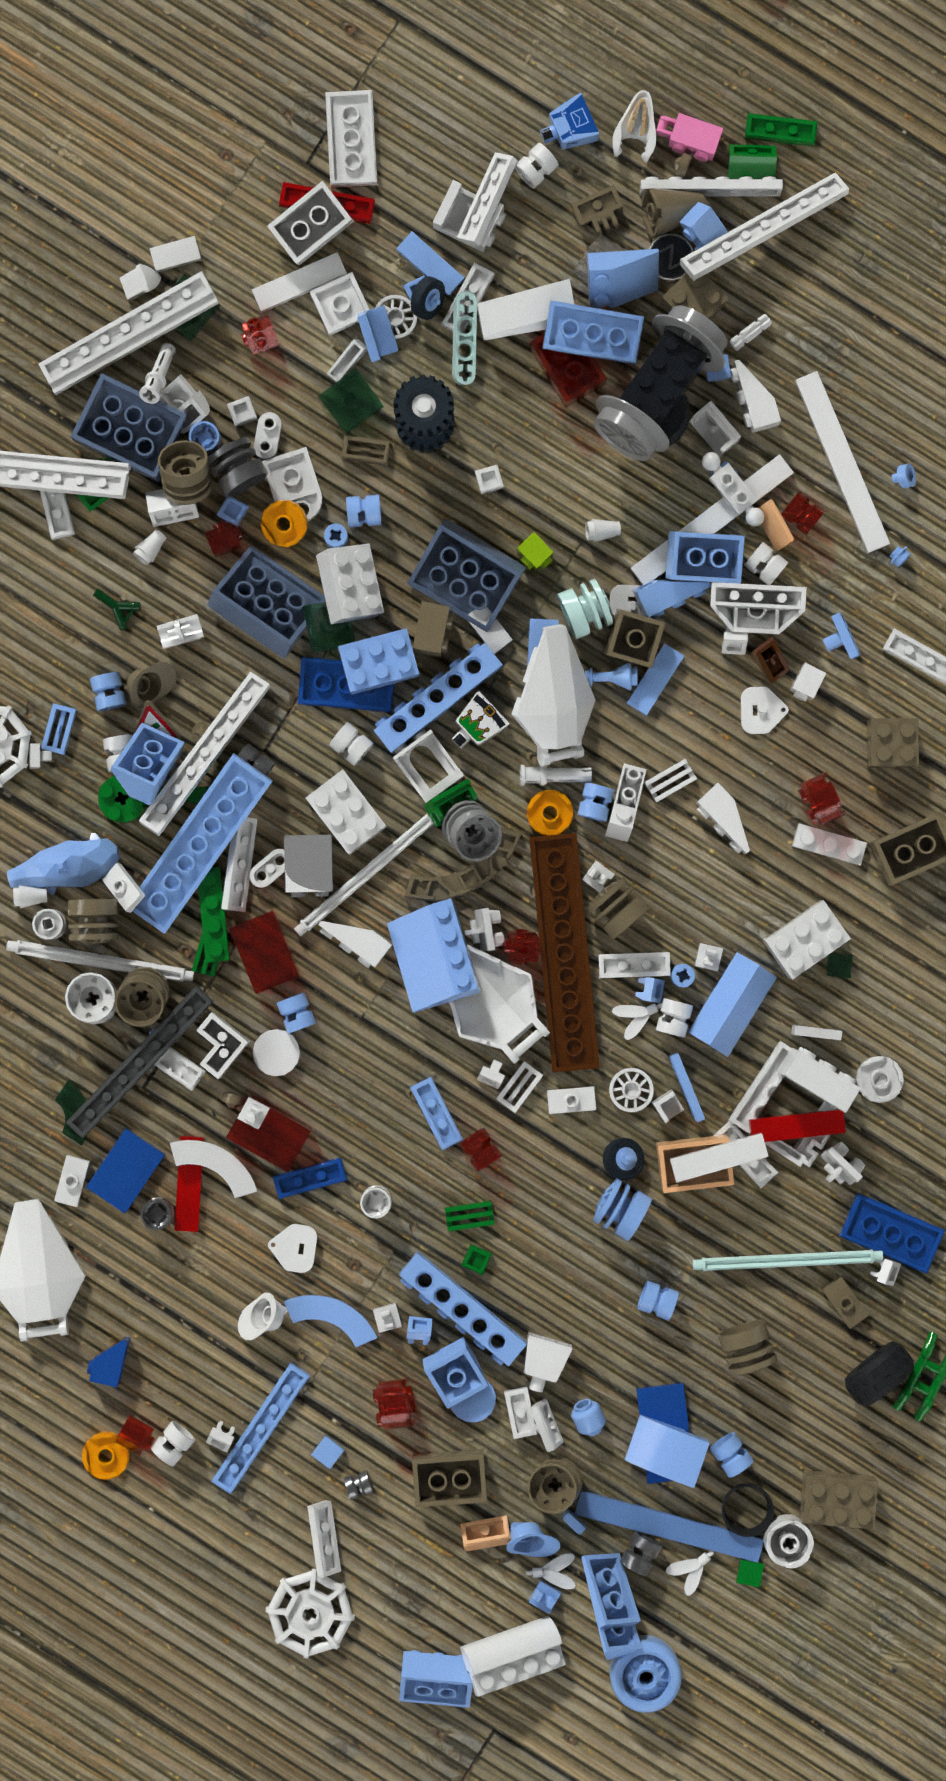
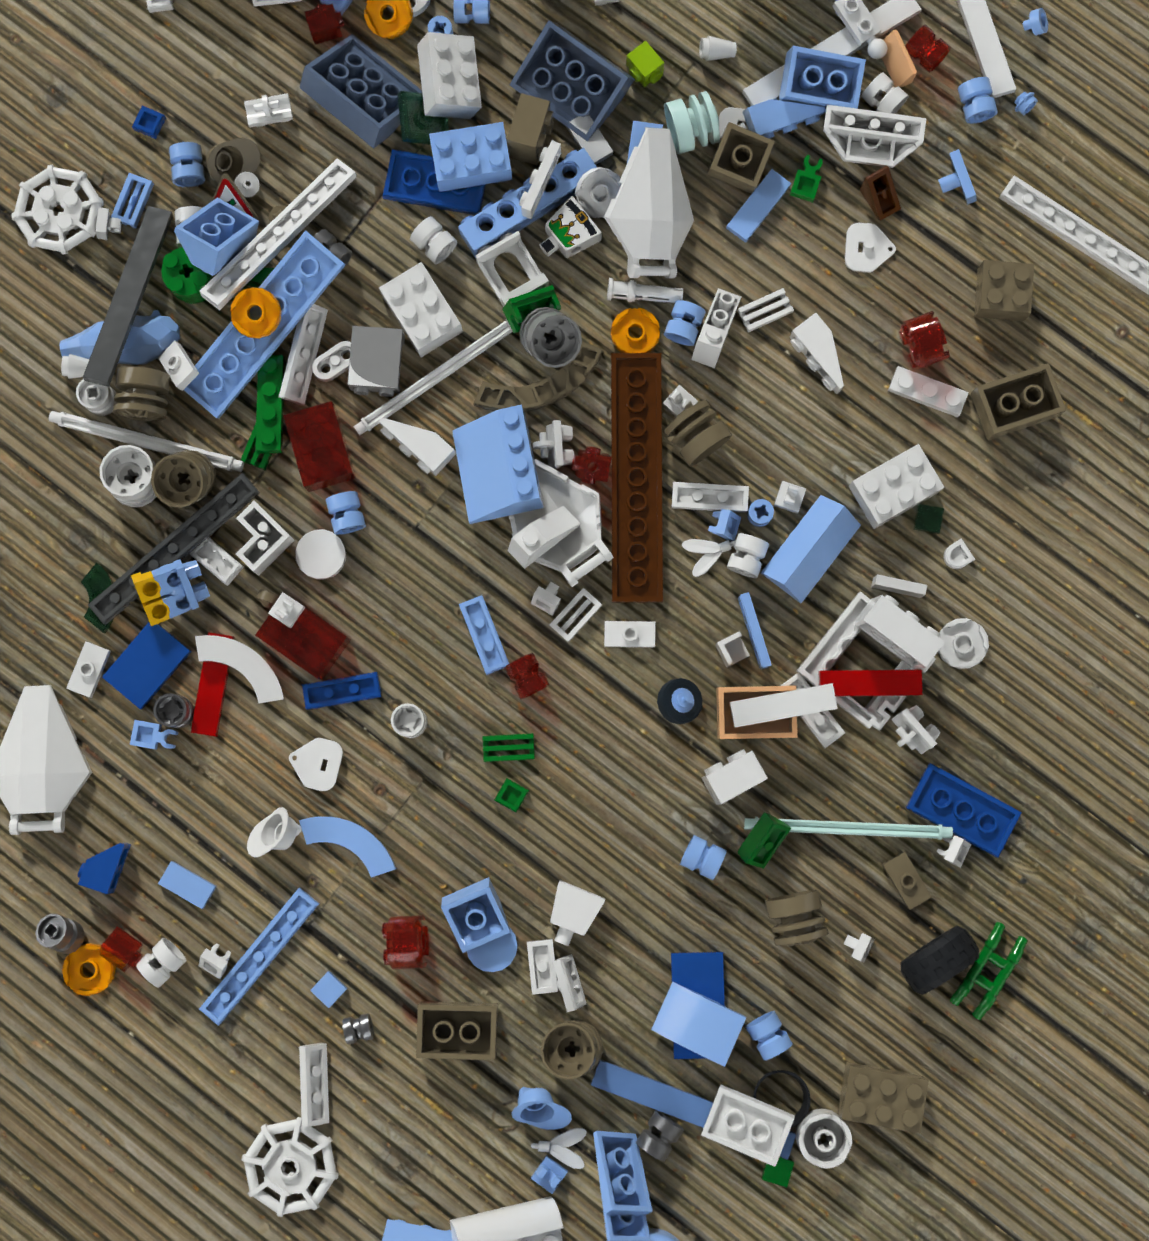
camera: 15 degrees right, 5 degrees down
(65, 650) = (149, 122): none -> blue tile
(69, 827) = (128, 296): none -> dark grey tile
(77, 1427) = (59, 933): none -> flat silver wheel
(118, 607) = (208, 84): dark green piece -> none
(135, 1237) = (149, 734): none -> light blue plate
(141, 1103) = (168, 591): none -> light blue hips
(148, 549) = (247, 25): white cone -> none
(162, 701) = (252, 189): none -> white tile
(187, 1370) = (187, 884): none -> light blue tile
(199, 822) = (241, 309): none -> light orange tile
(387, 1317) = (409, 849): white tile -> none
(419, 1329) = (442, 864): light blue tile -> none
(446, 680) = (540, 179): none -> white plate
(483, 1019) = (542, 535): none -> white slope
(485, 1533) = (491, 1097): light nougat slope -> none
(494, 1326) = (449, 794): light blue brick -> none
(503, 683) = (597, 190): none -> white tile
(573, 1521) = (588, 1092): light blue tile -> none
(588, 1417) = (615, 979): light blue head -> none
(622, 1209) = (673, 753): light blue wheel -> none
(623, 676) = (725, 197): light blue piece -> none
(631, 1089) = (695, 629): white wheel -> none
(679, 1227) = (734, 777): none -> white brick
(691, 1566) = (716, 1157): white piece -> none
(698, 654) = (806, 181): none -> green plate
(711, 1279) = (763, 840): none -> green slope
(719, 1537) = (748, 1125): none -> white plate
(734, 642) = (845, 174): white tile -> none
(807, 682) = (918, 220): white brick -> none
(807, 1366) = (861, 946): none -> white tile
(854, 559) = (977, 100): none -> light blue wheel
(869, 997) = (958, 555): none -> white tile

